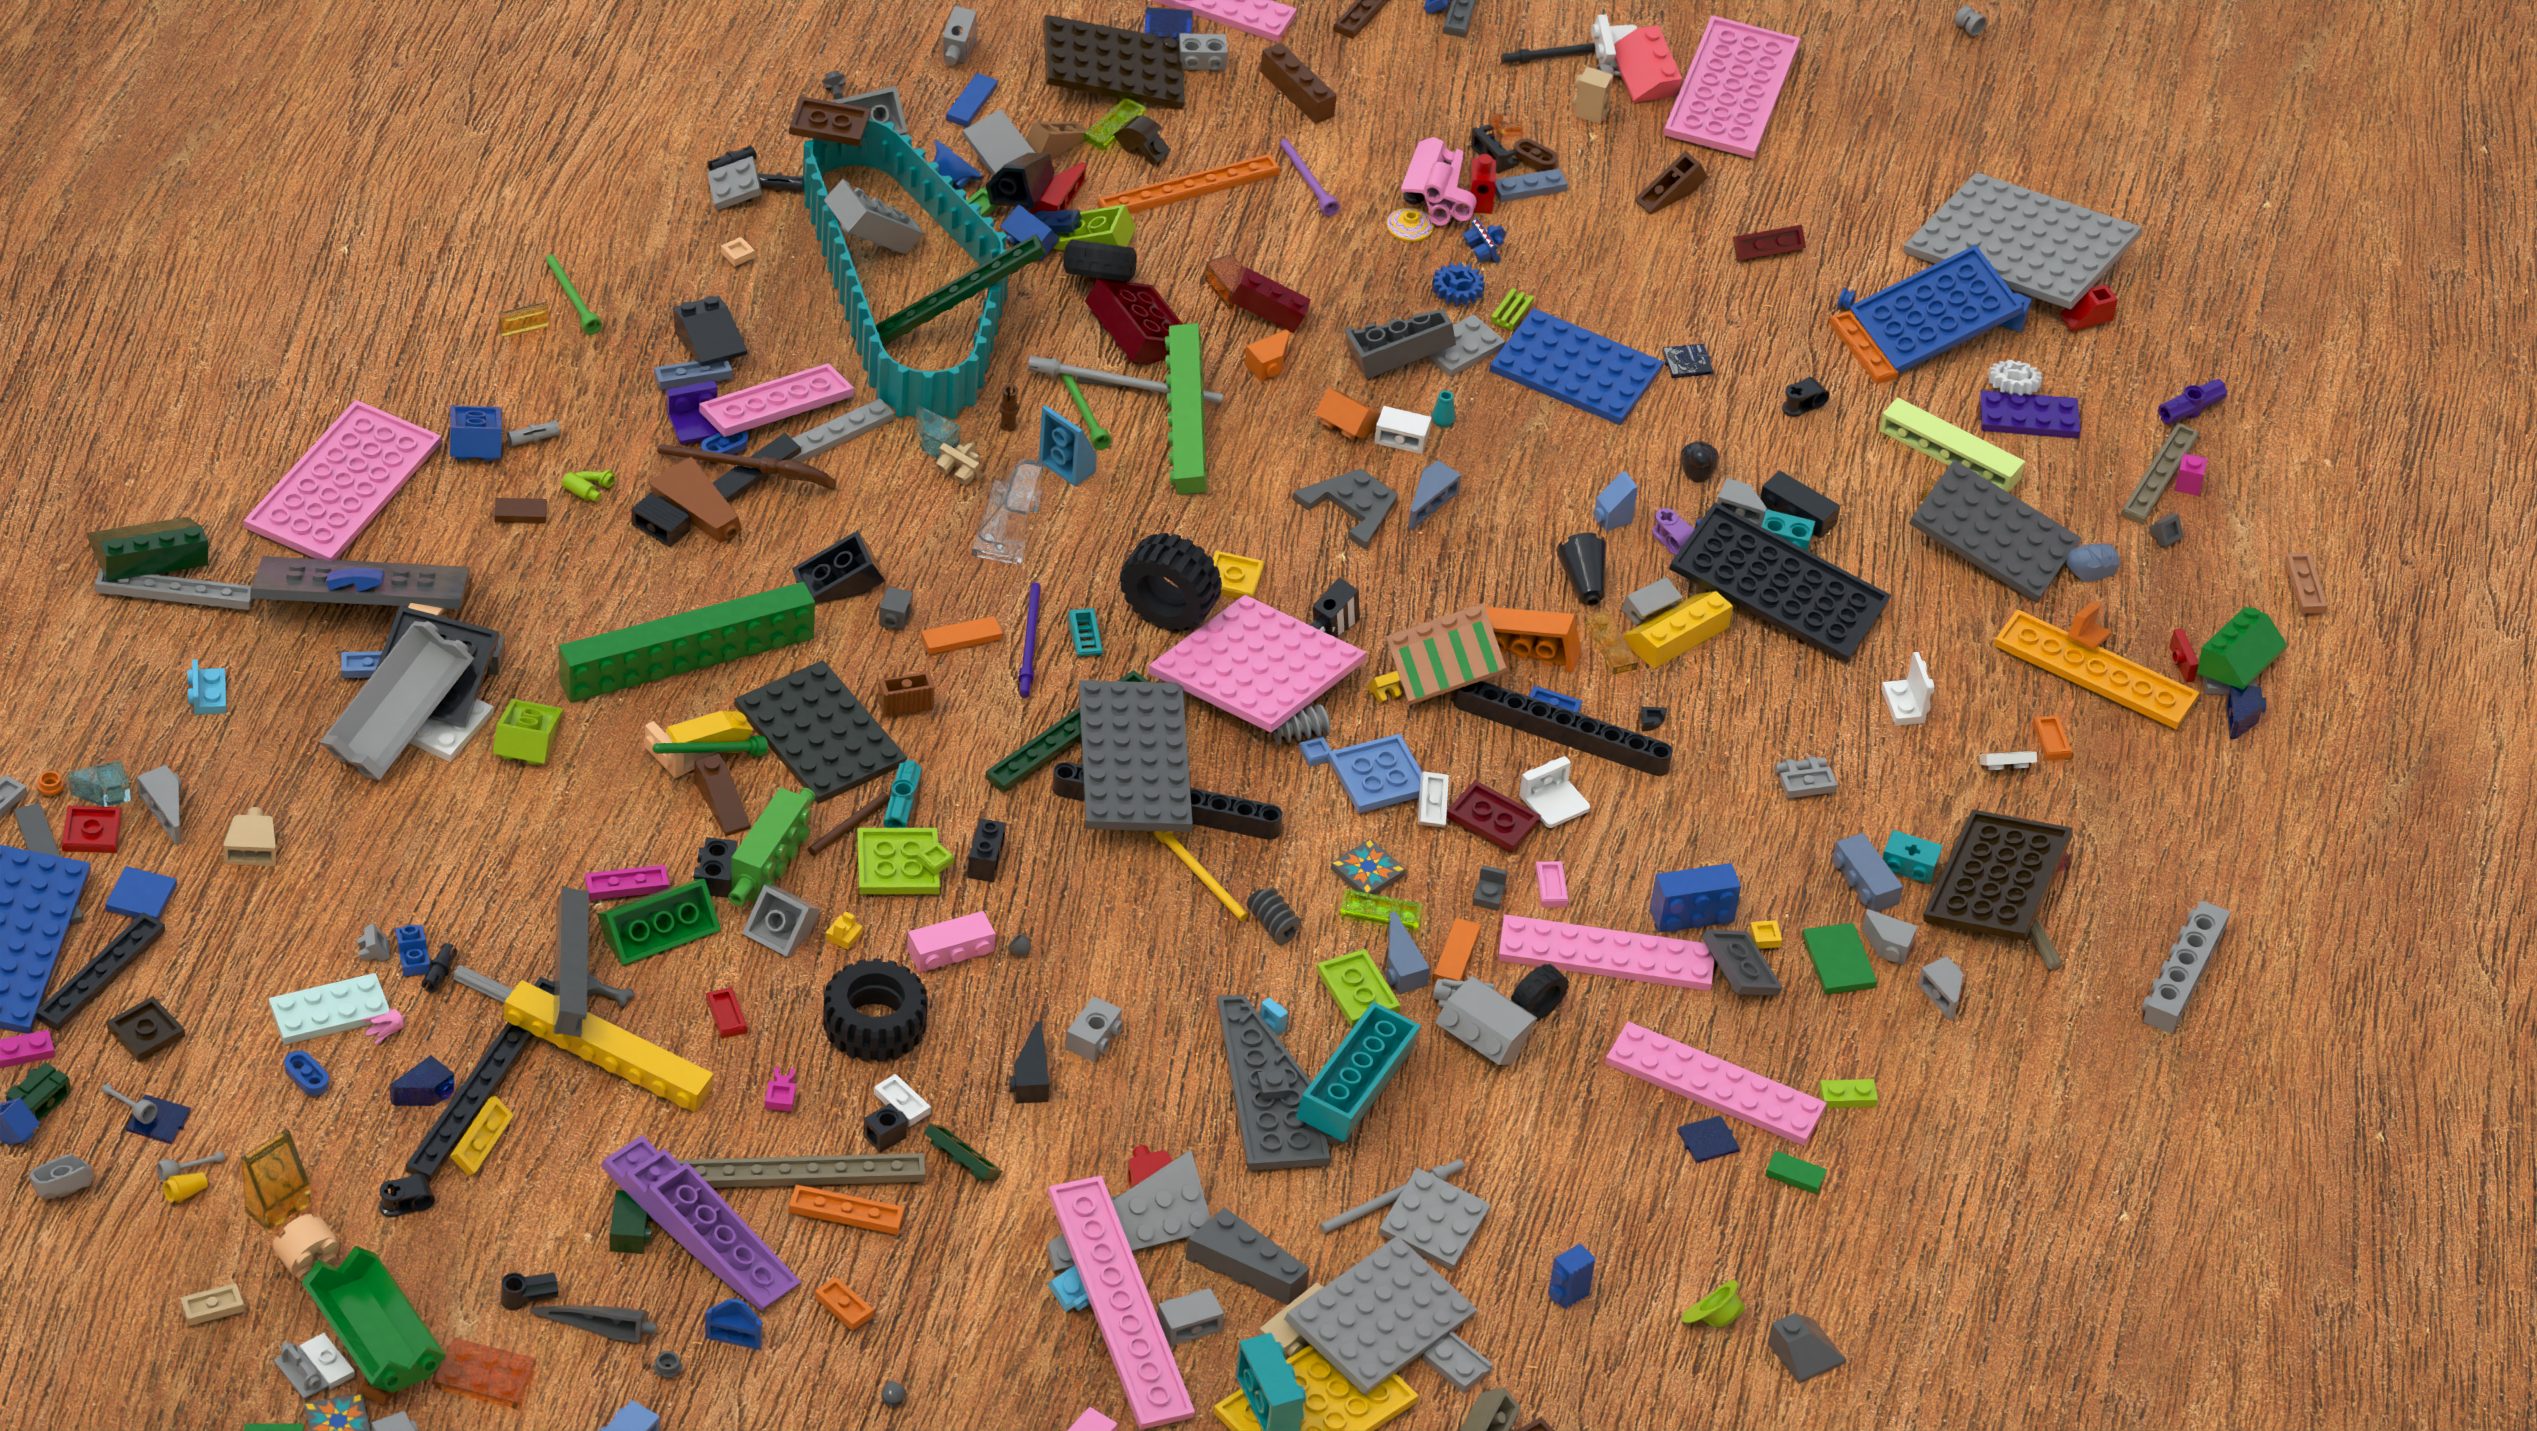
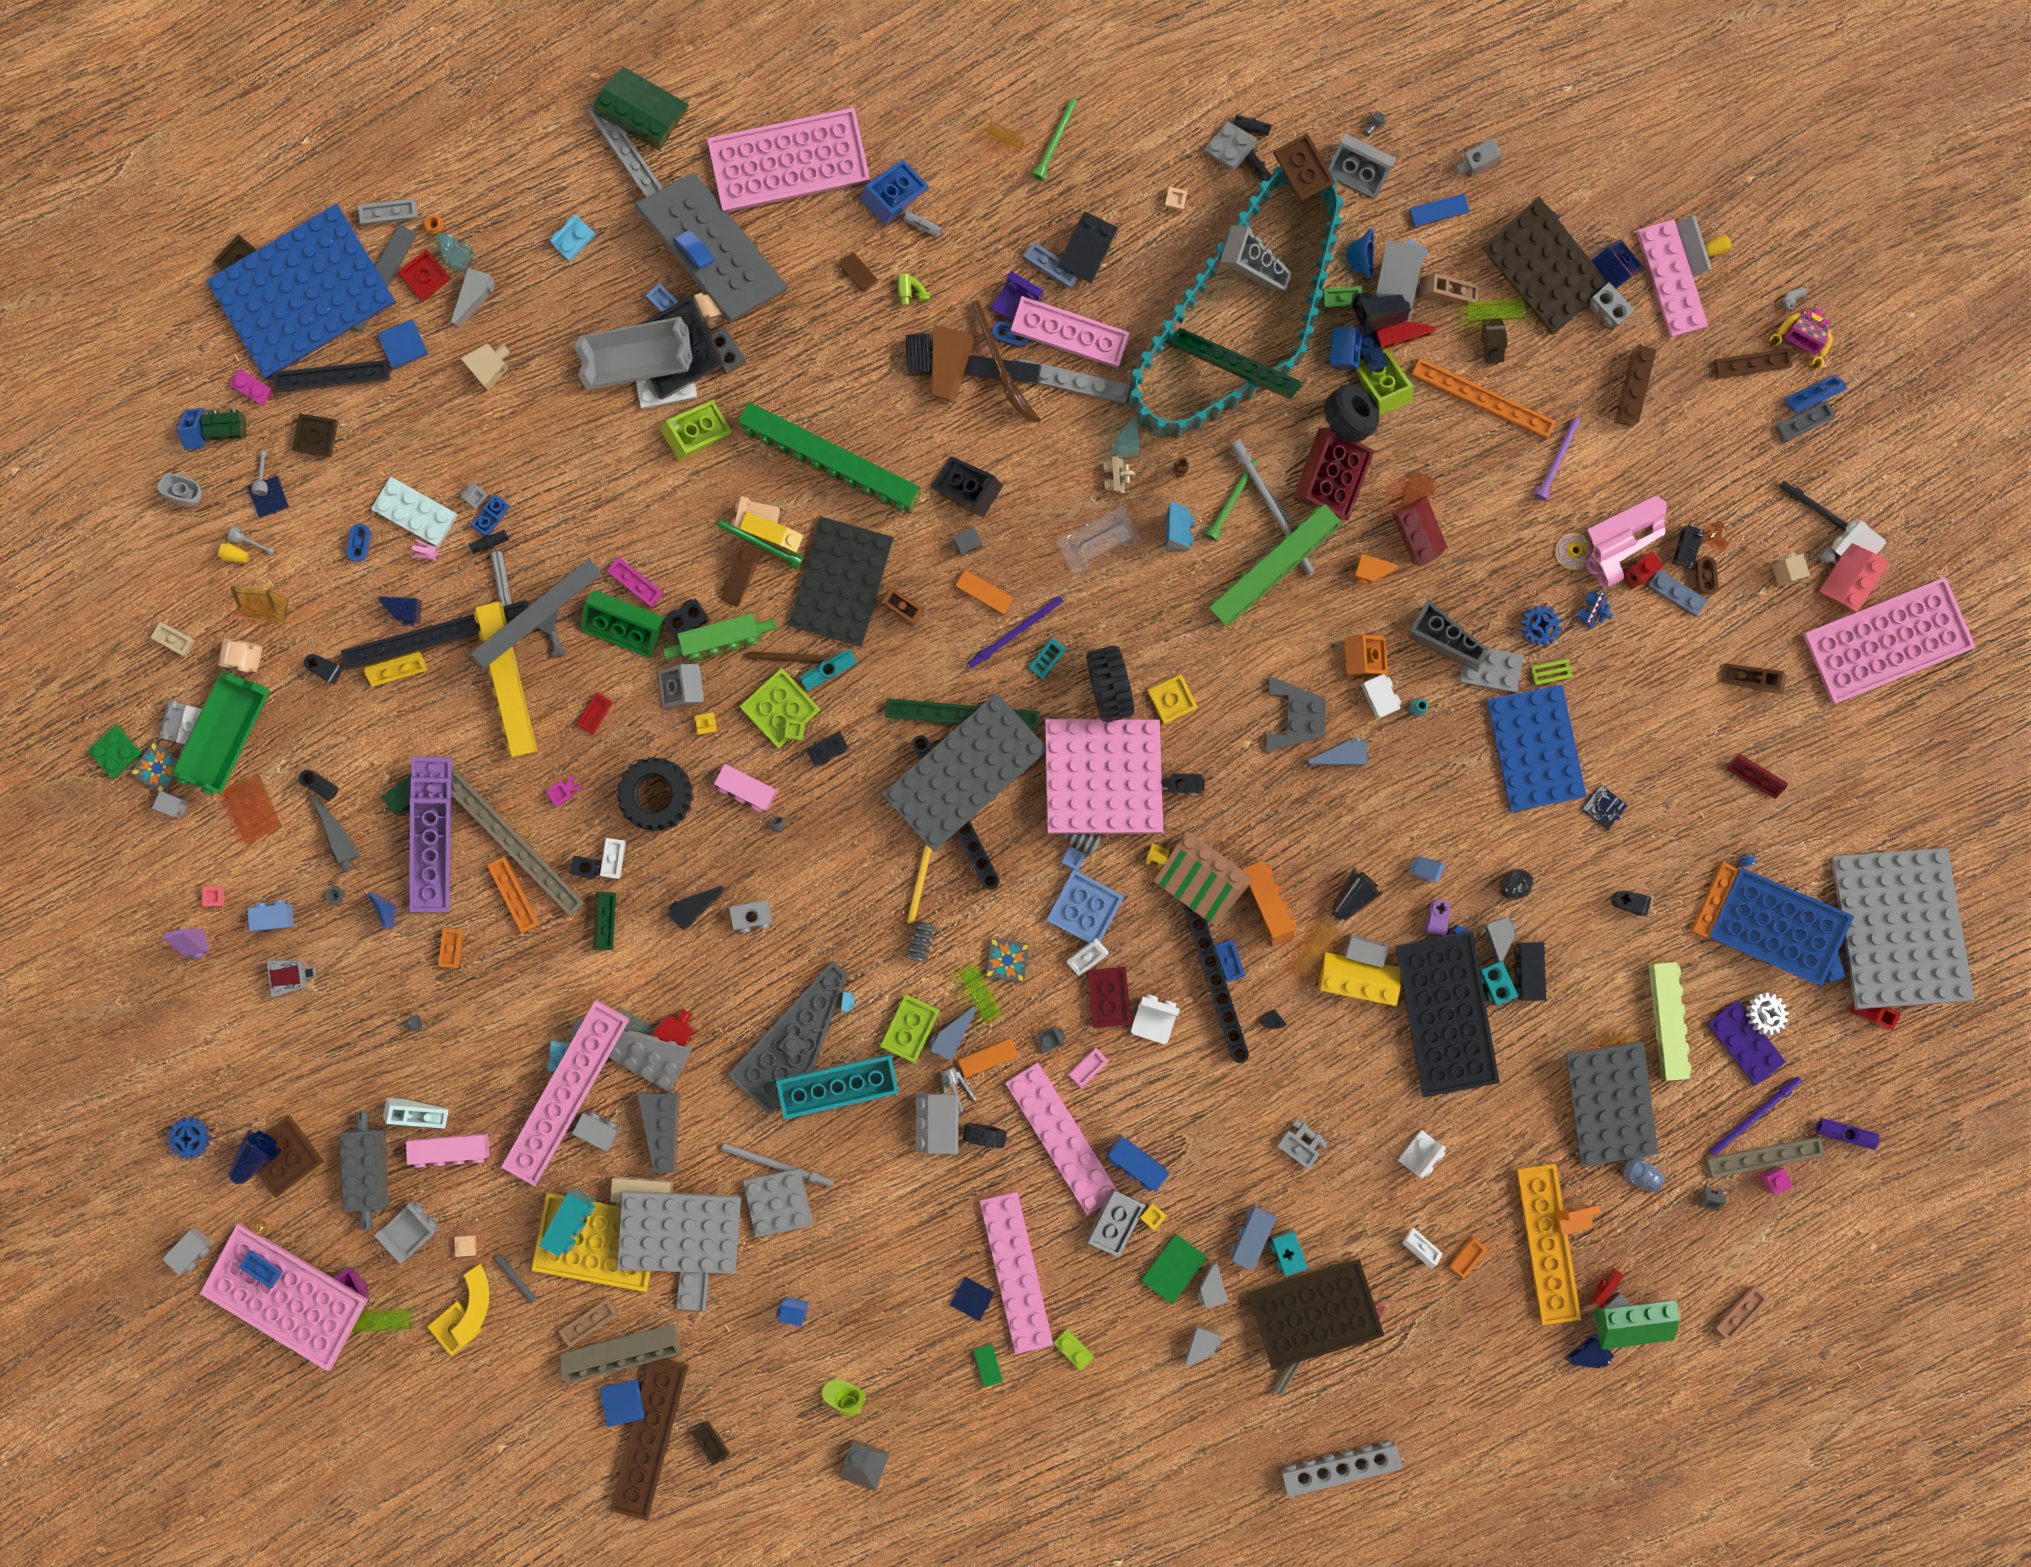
camera: 55 degrees right, 40 degrees up
(2106, 420) = (1783, 1092): none -> dark purple bar

